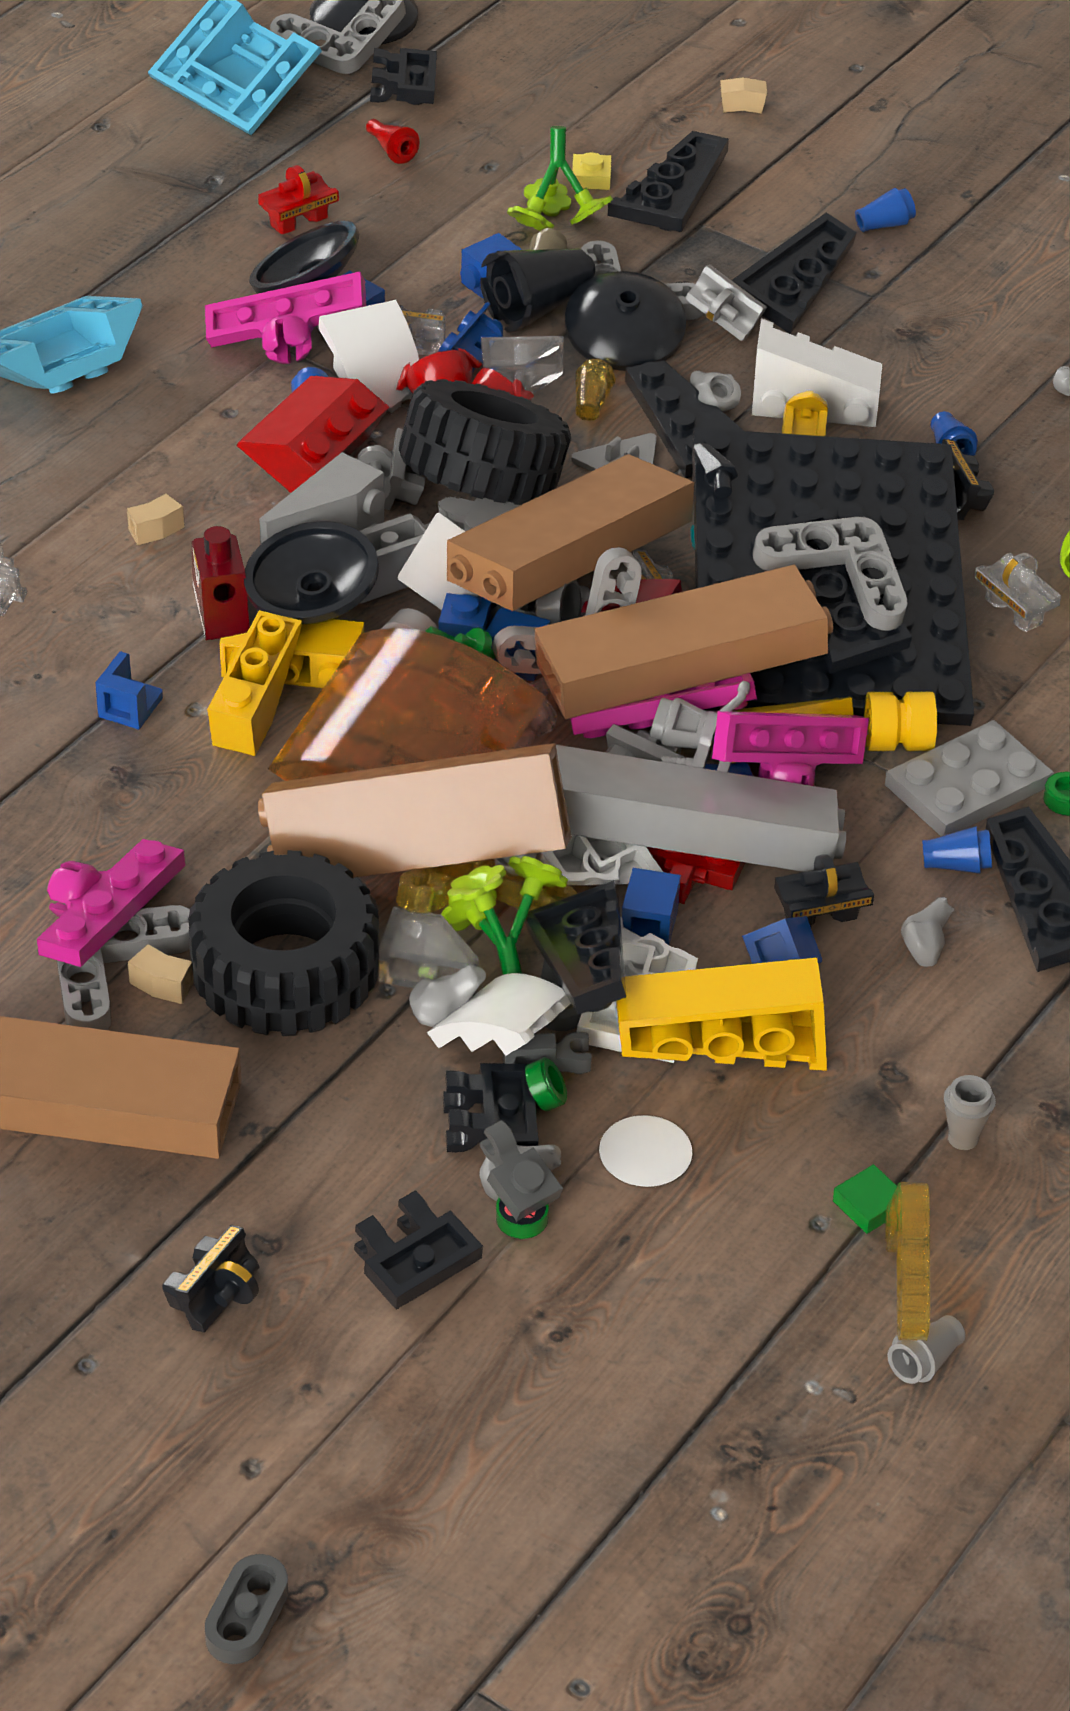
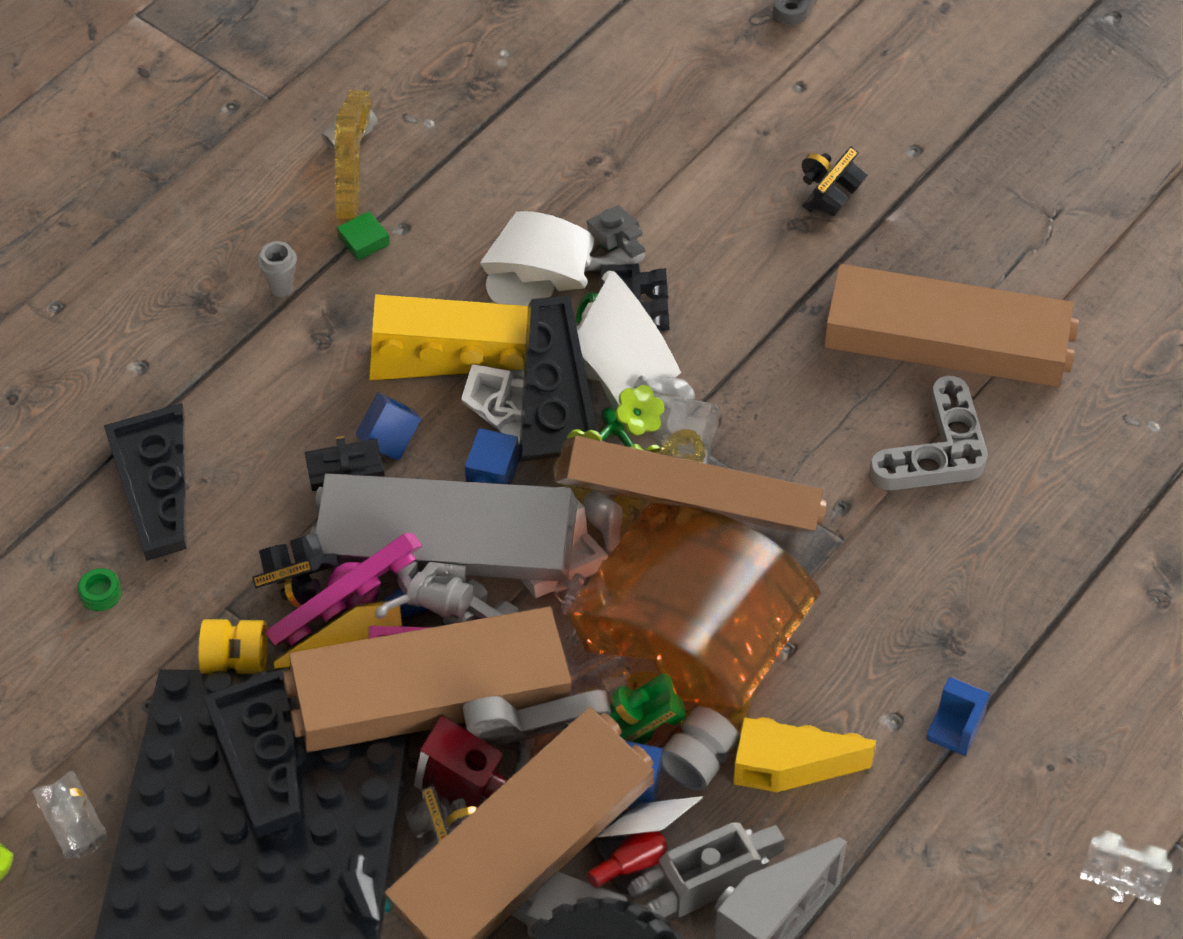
camera: 175 degrees left, 10 degrees up
(103, 900) = (948, 477): dark pink plate -> none
(161, 974) = (895, 424): tan piece -> none
(217, 565) = (879, 828): dark red torso -> none
(253, 684) = (840, 690): yellow slope -> none
(287, 987) = (806, 379): black tyre -> none
(312, 572) = (791, 773): black dish -> none
(421, 1260) = (689, 191): black plate -> none
(618, 1152) = (540, 250): none -> white slope
(853, 775) = (308, 560): none -> black hips
(856, 556) = (240, 761): light grey beam -> none
(924, 932) = (266, 445): light grey animal -> none
(959, 851) = (216, 517): blue cone -> none
(968, 778) = (168, 610): light grey plate -> none

